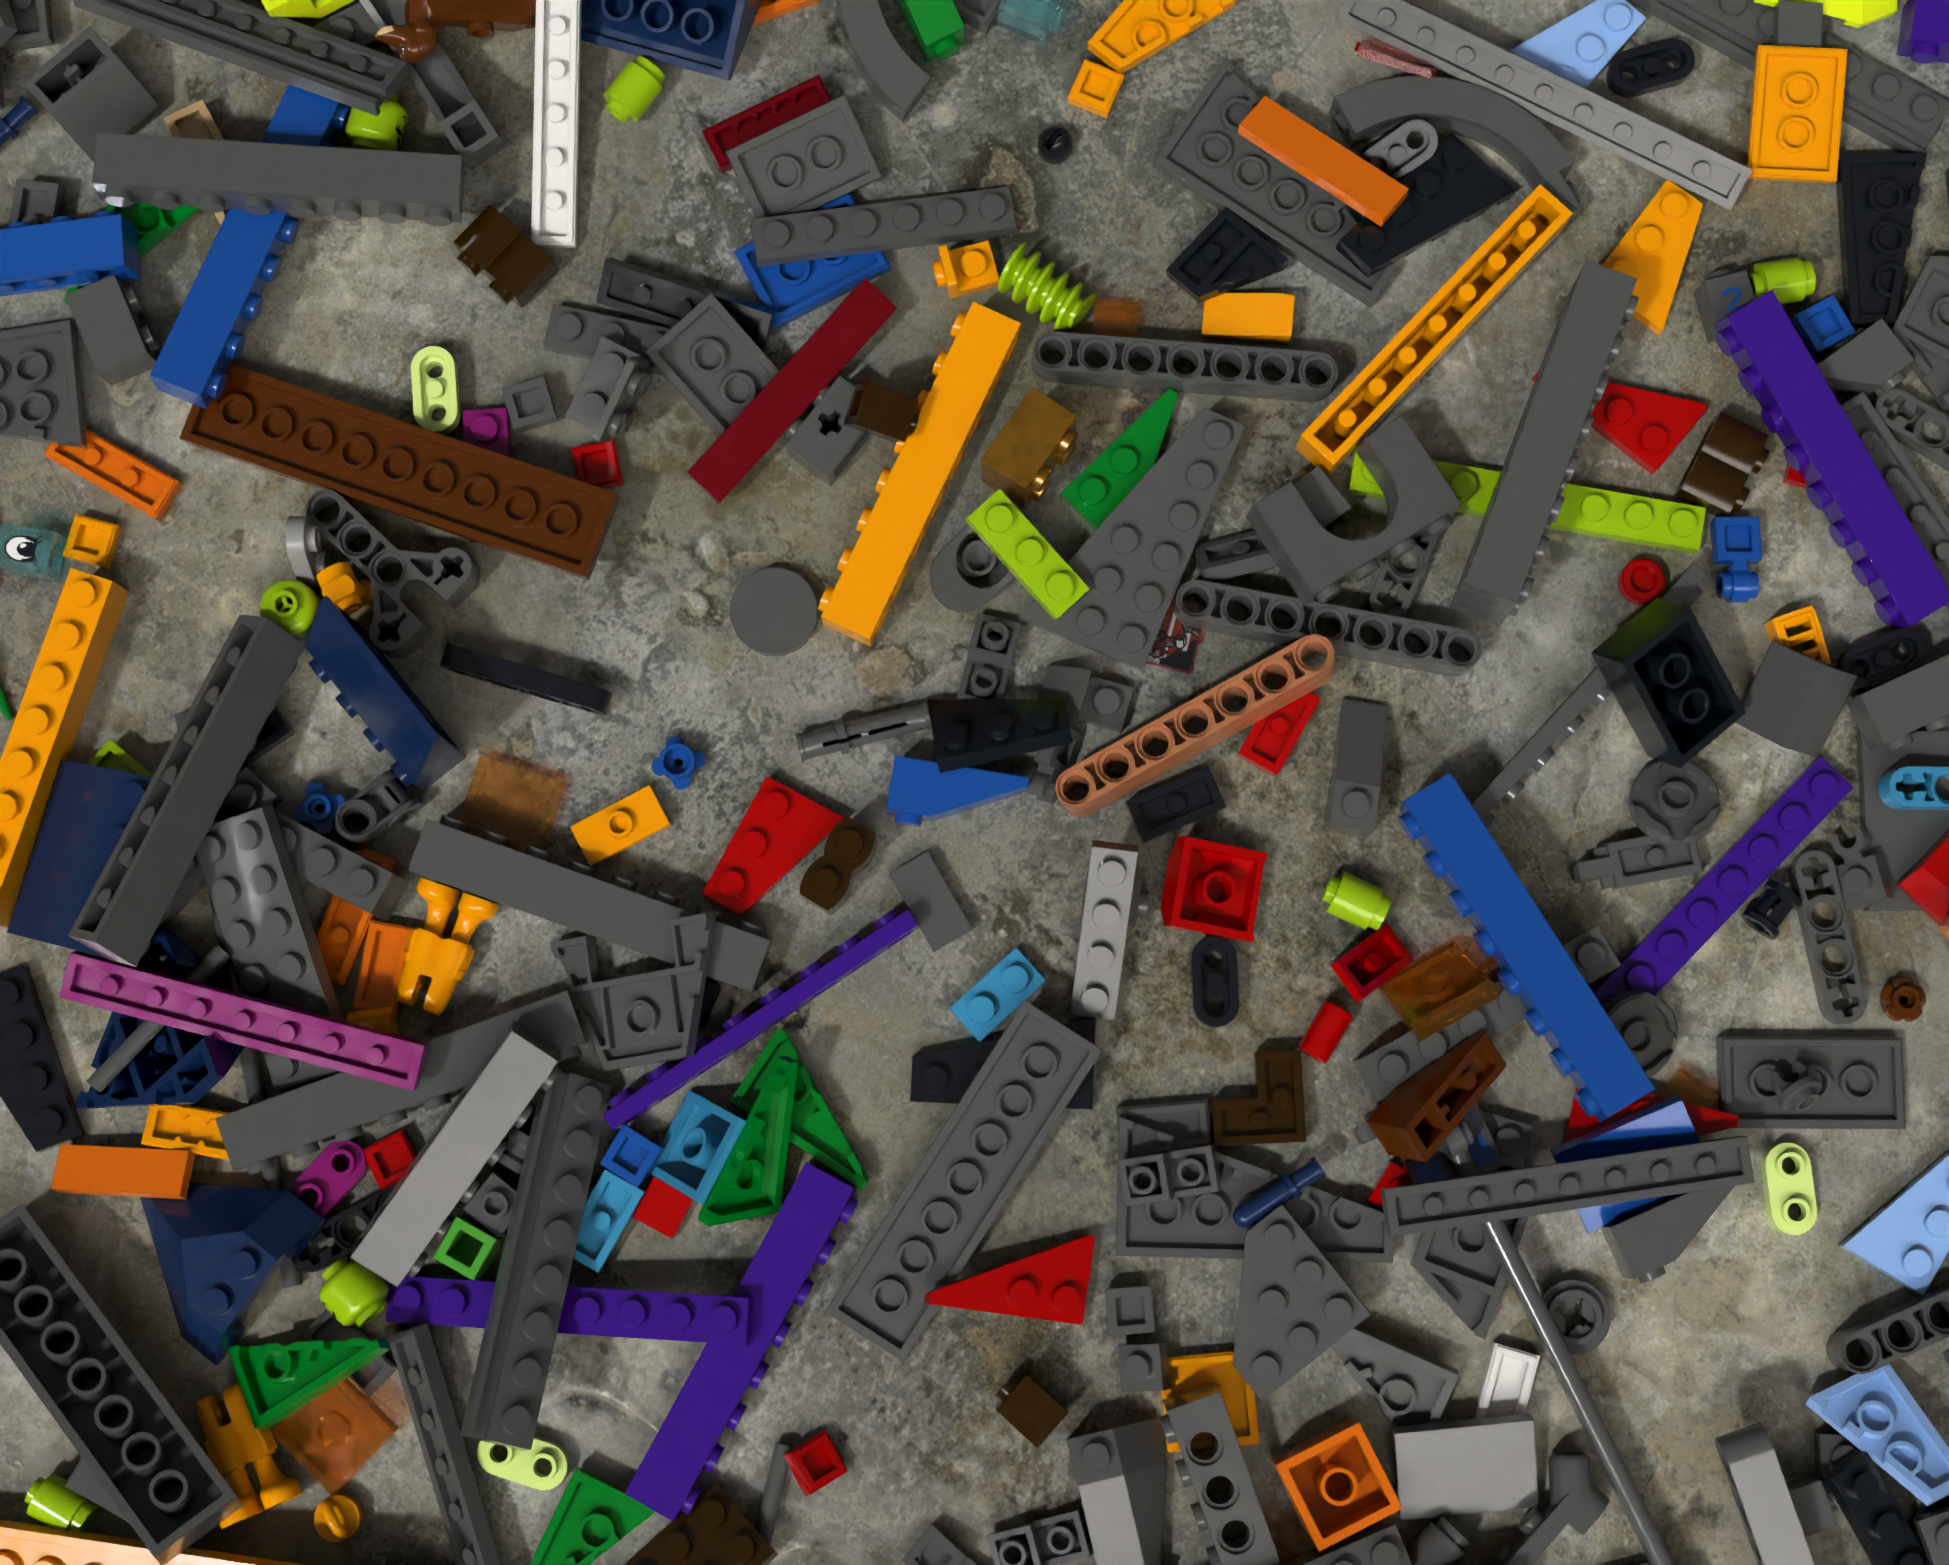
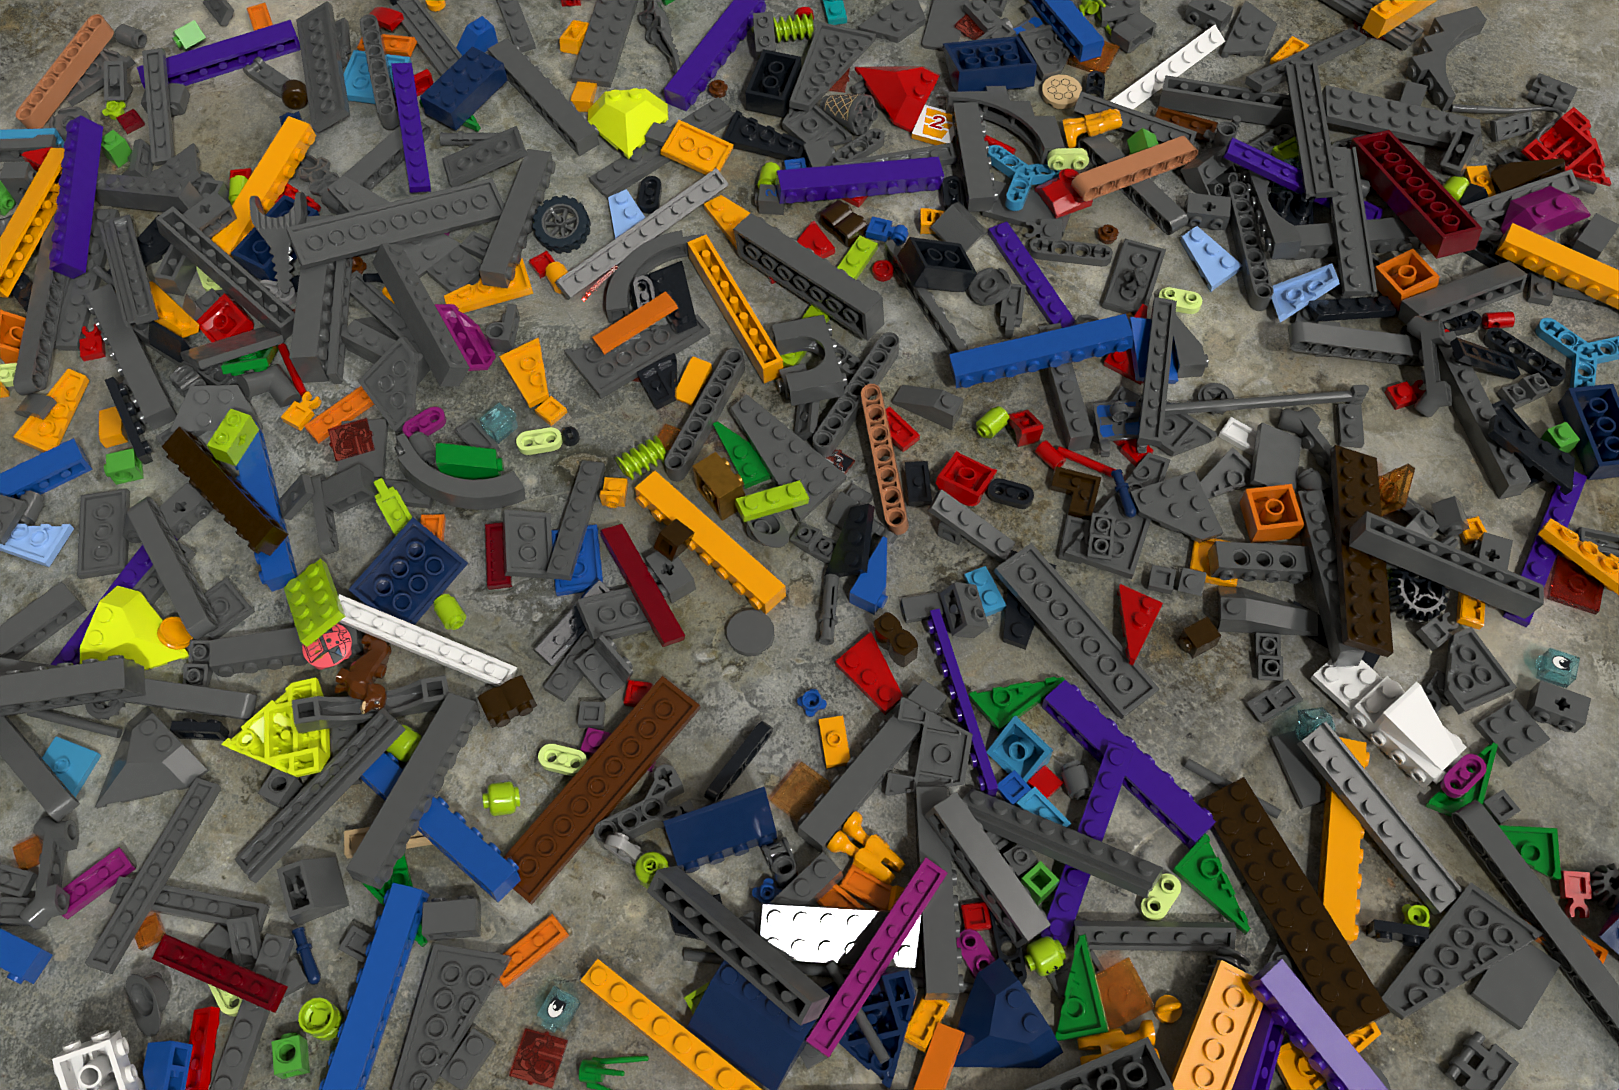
camera: 70 degrees left, 20 degrees down
(92, 541) = (565, 975): light orange tile -> none
(335, 320) = (501, 798): none -> lime head
(343, 588) = (654, 837): light orange plate -> none
(681, 1260) = (1076, 780): none -> dark grey brick
(755, 1169) = (1041, 724): green wing -> none
(815, 1463) = (1200, 748): red tile -> none
(935, 970) = (964, 610): none -> dark grey brick
(1023, 97) = (539, 440): none -> yellowish green plate
(1338, 1109) = (1085, 461): none -> red bar
(1436, 1099) = (1102, 413): reddish brown slope -> none
(1437, 991) = (1048, 398): clear orange tile -> none
(1775, 894) = (1051, 266): black bush -> none

